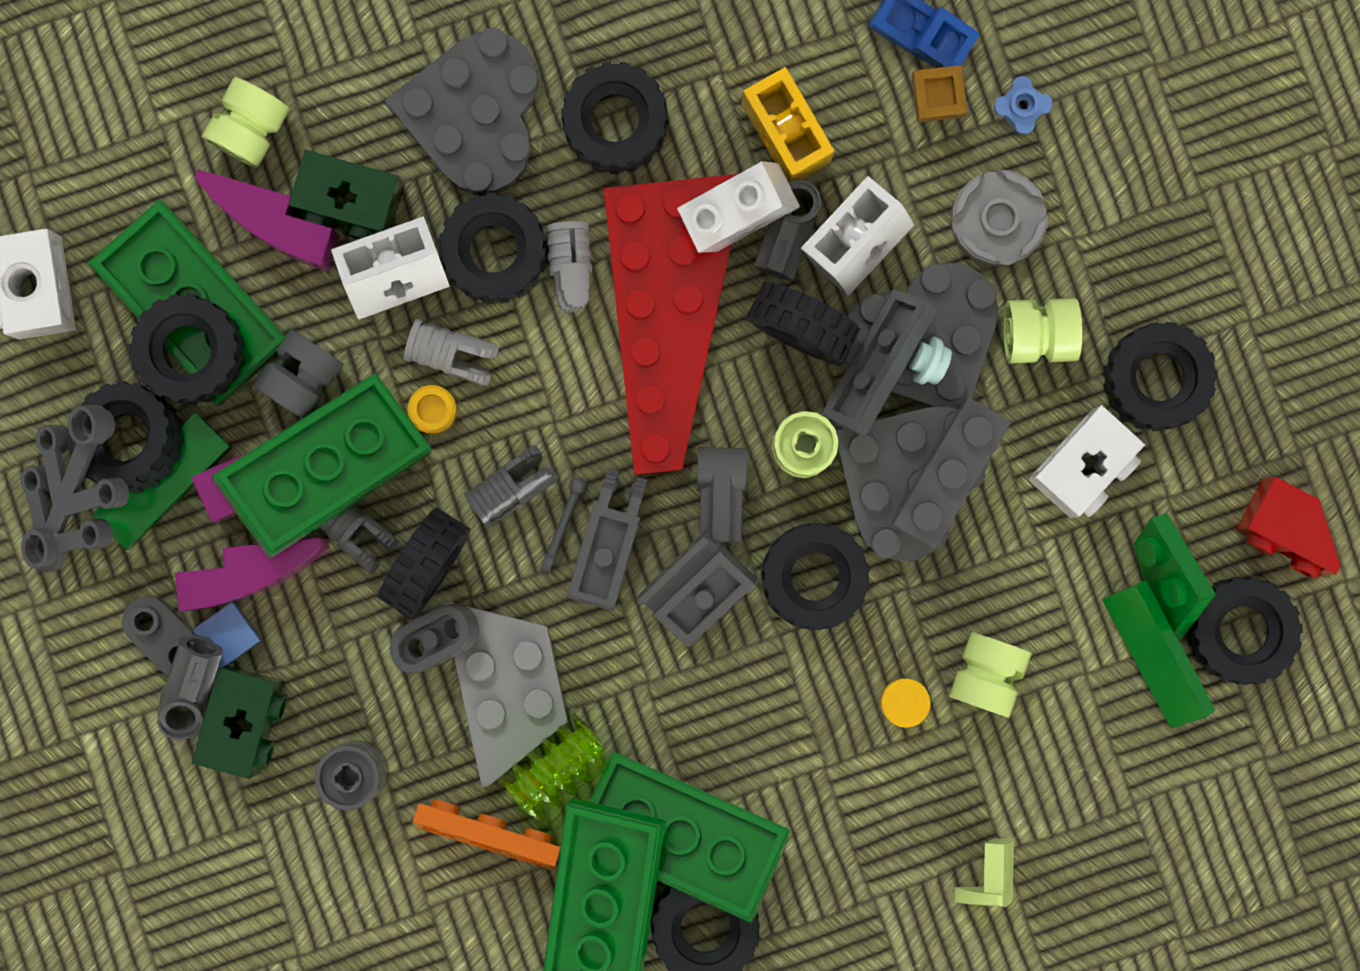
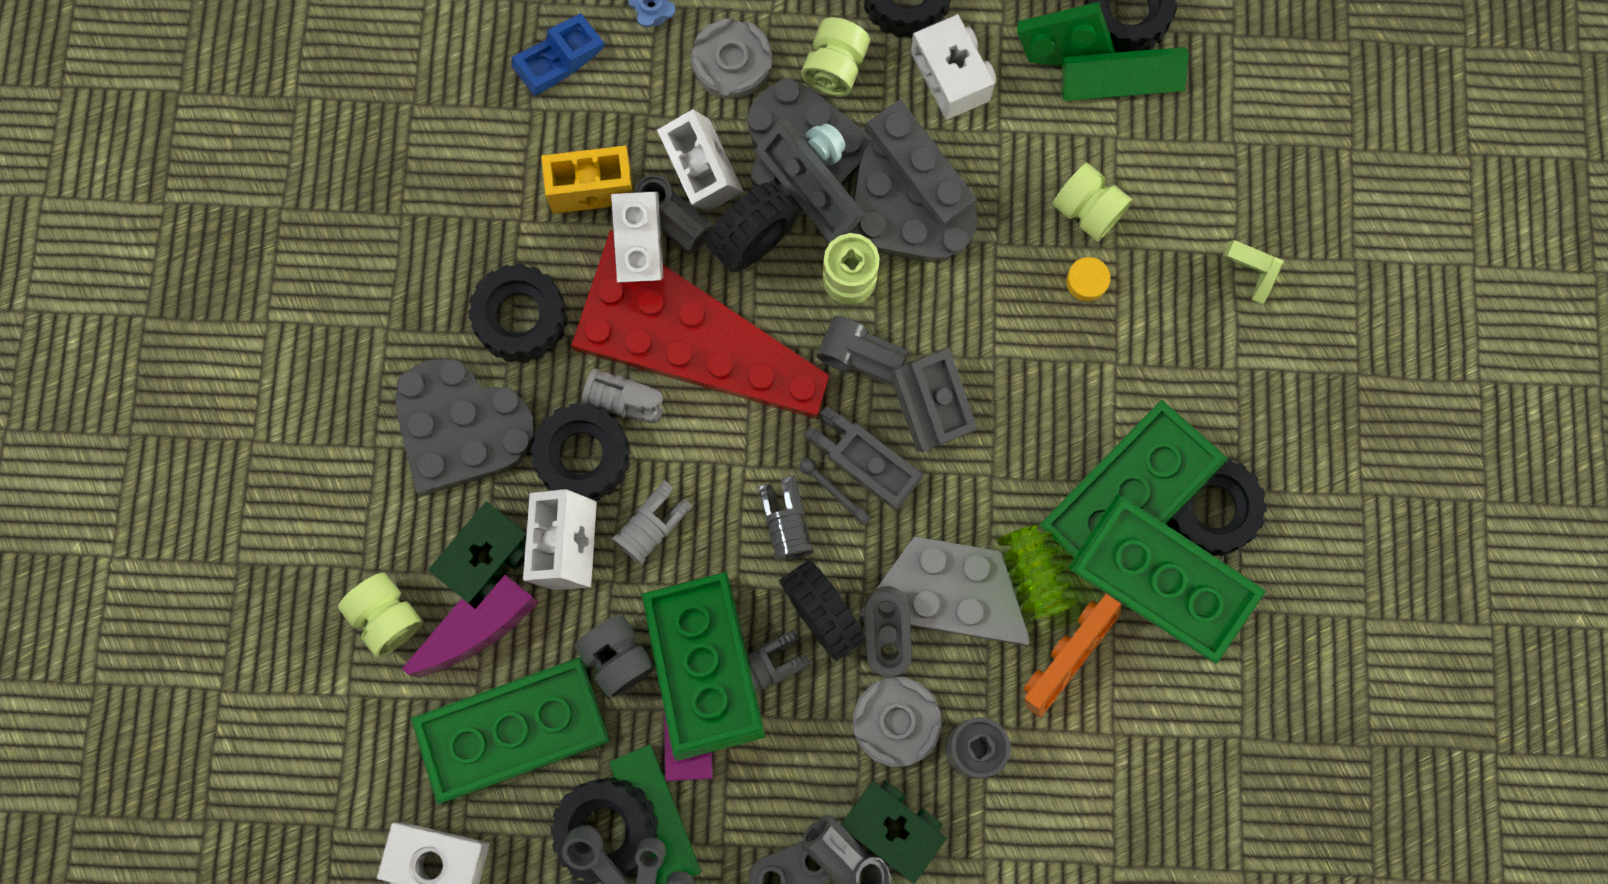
camera: 70 degrees left, 10 degrees down
(160, 322) = (518, 733): black tyre -> none
(230, 631) = (808, 808): medium blue tile -> none
(244, 574) = (766, 770): magenta slope -> none
(352, 683) = (897, 722): none -> light grey tile
(432, 409) = (692, 559): yellow tile -> none
(852, 576) = (964, 274): black tyre -> none
(939, 93) = (615, 58): pearl gold tile -> none

